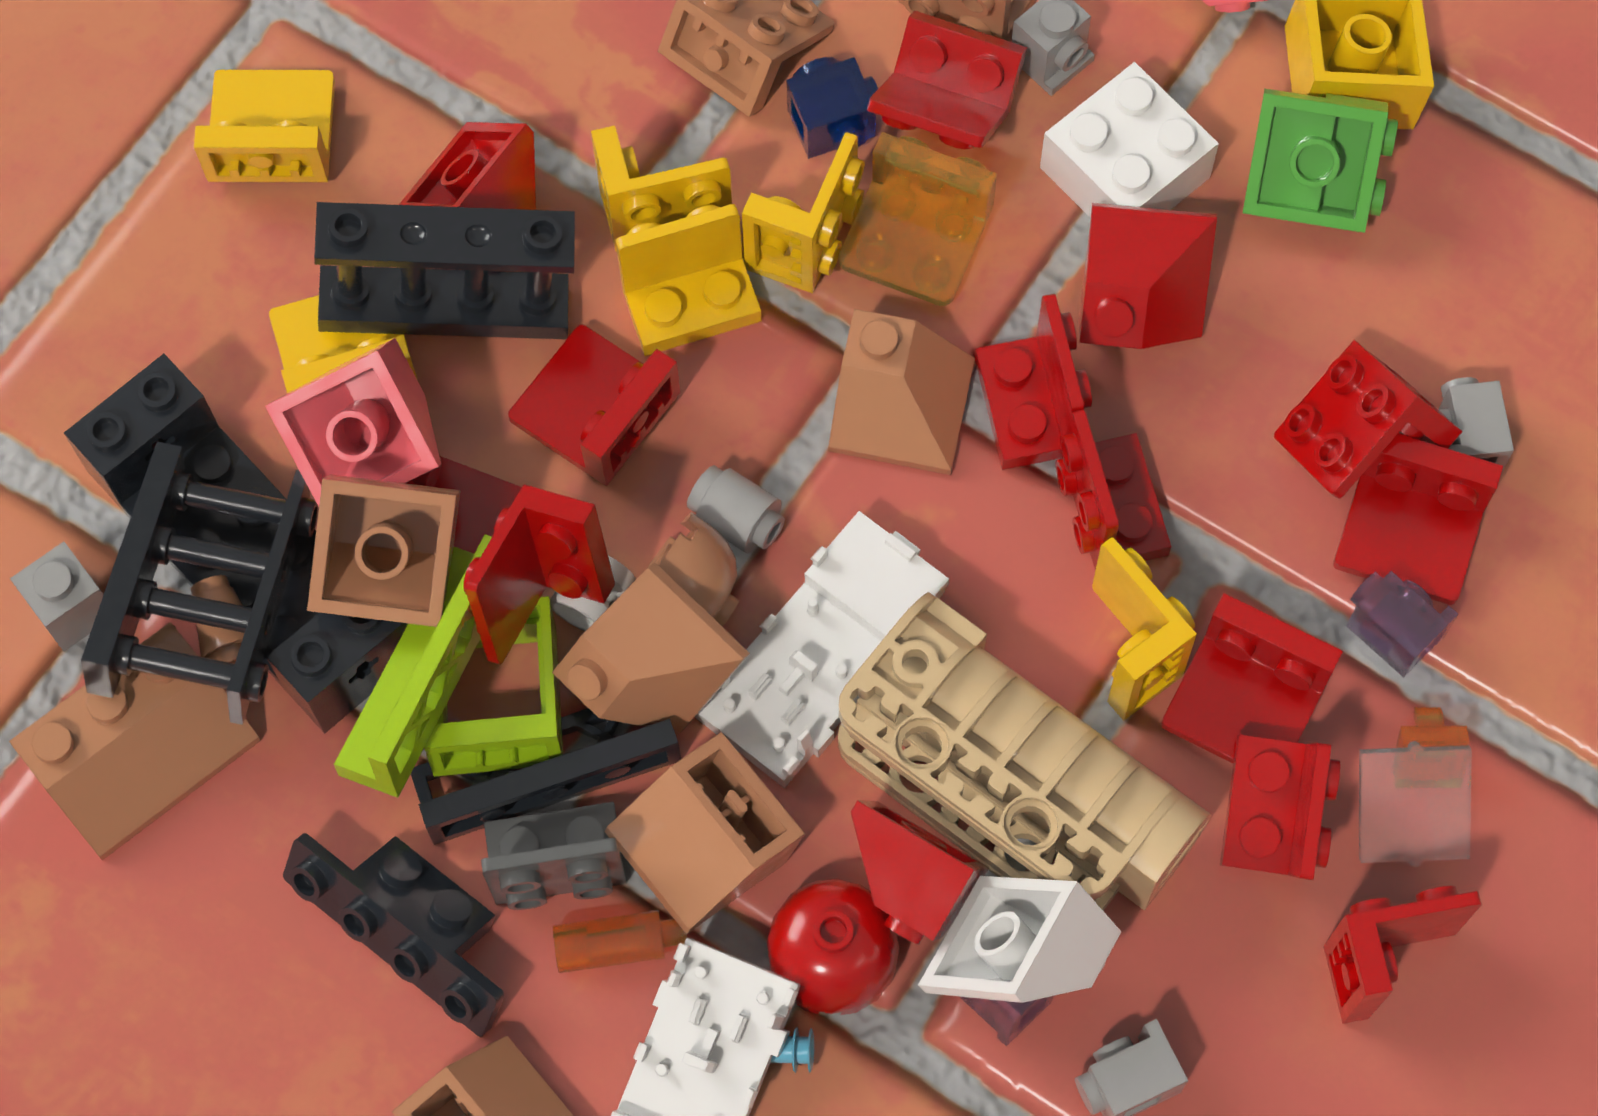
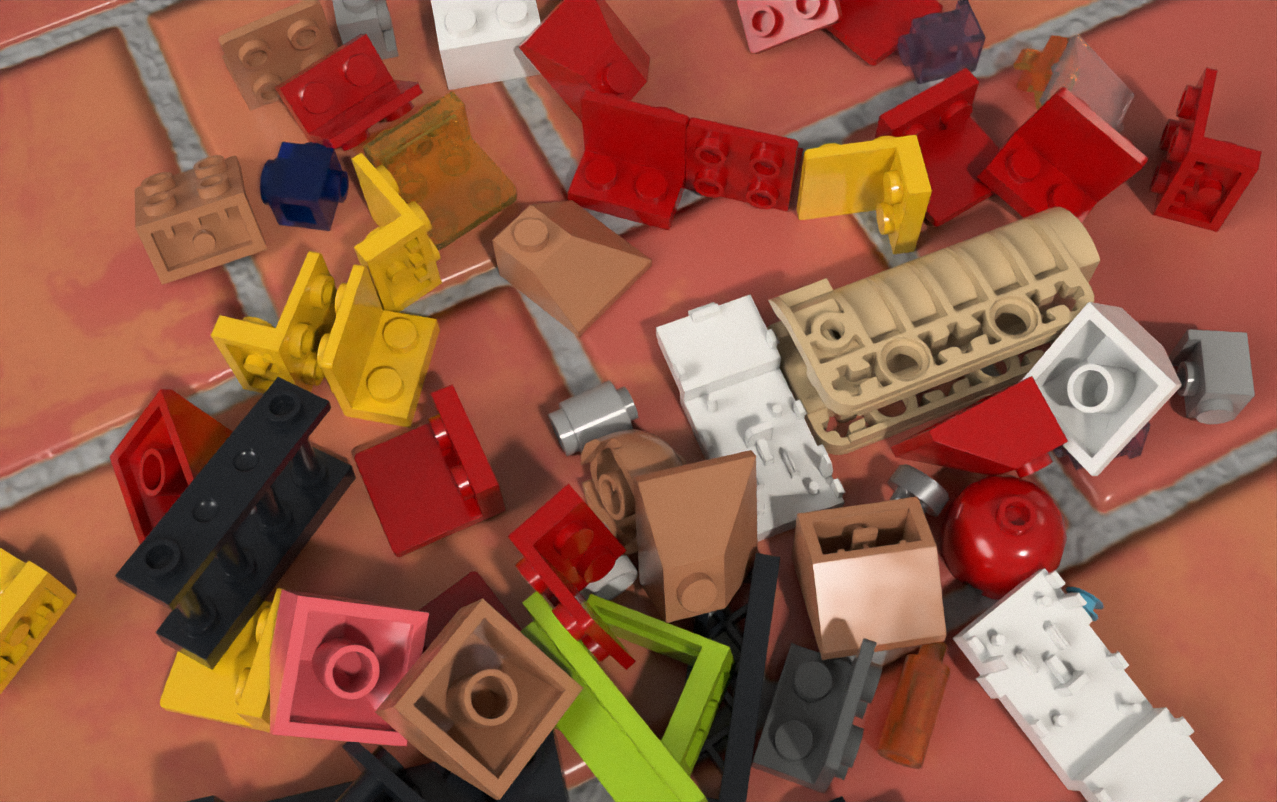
camera: 60 degrees left, 5 degrees down
(831, 841) = (912, 482): none -> flat silver tile

